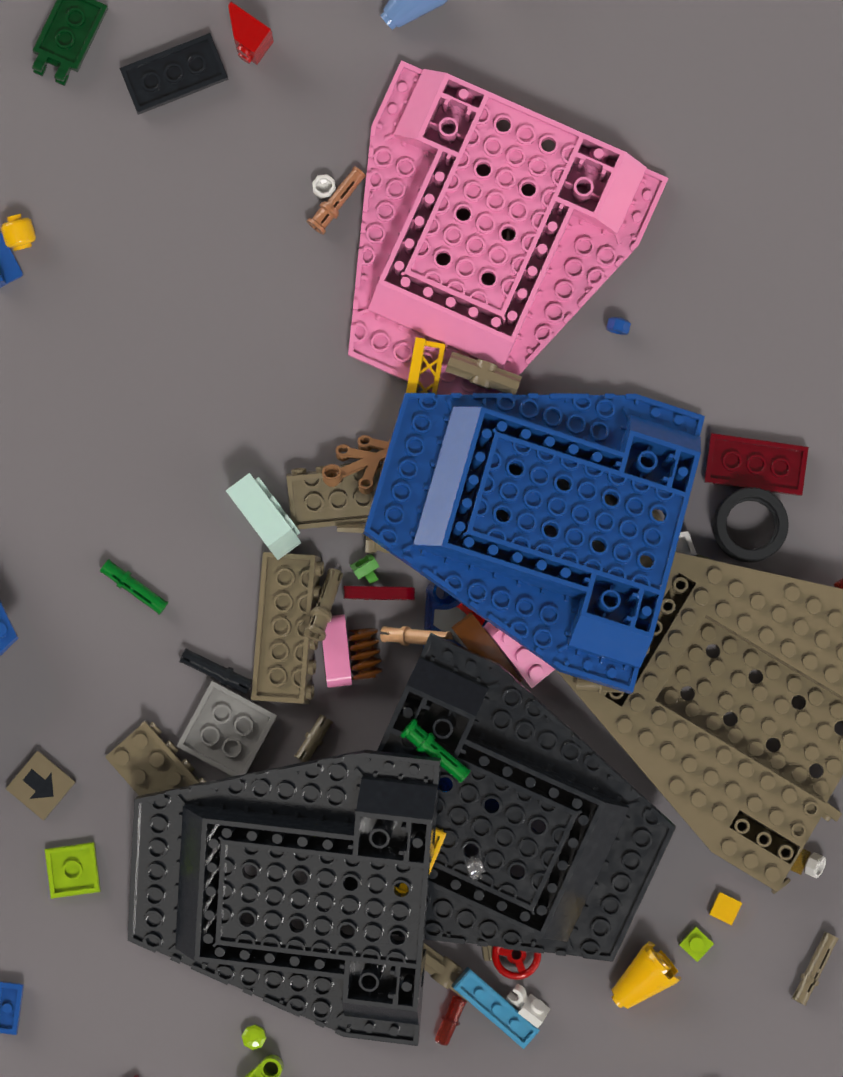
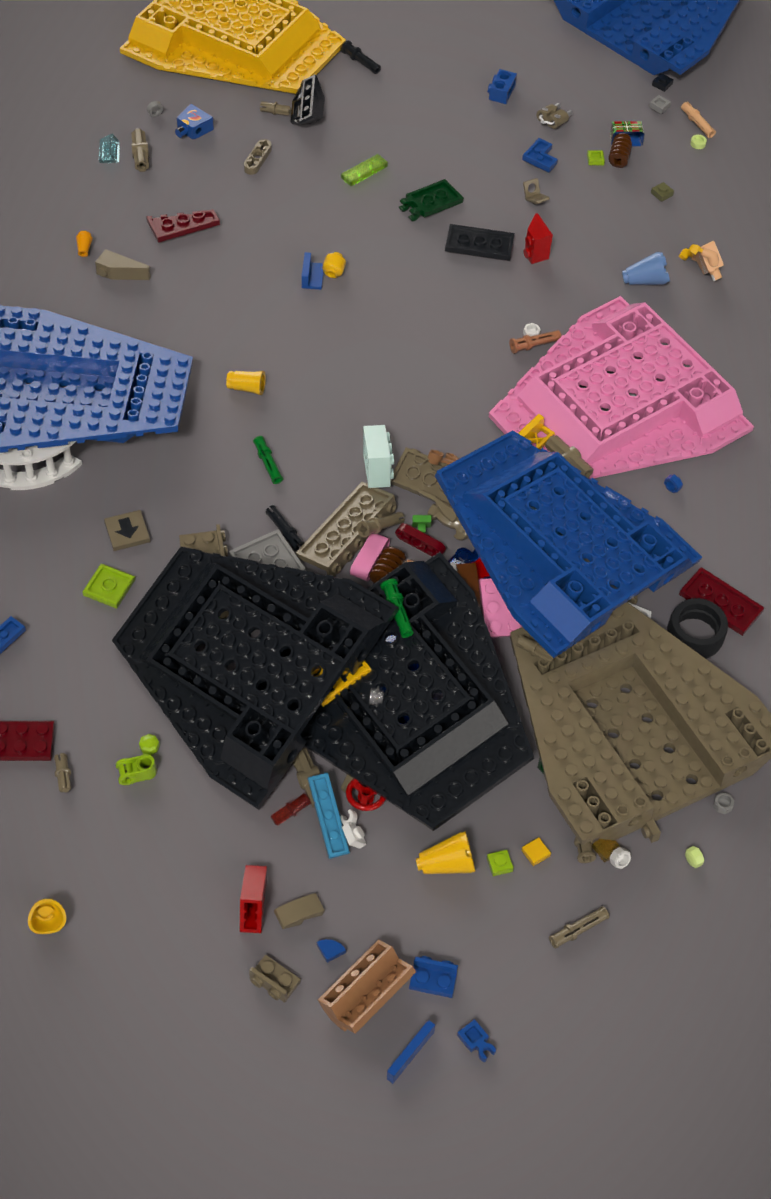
camera: 30 degrees right, 30 degrees down
(34, 489) = (246, 381): none -> yellow plant

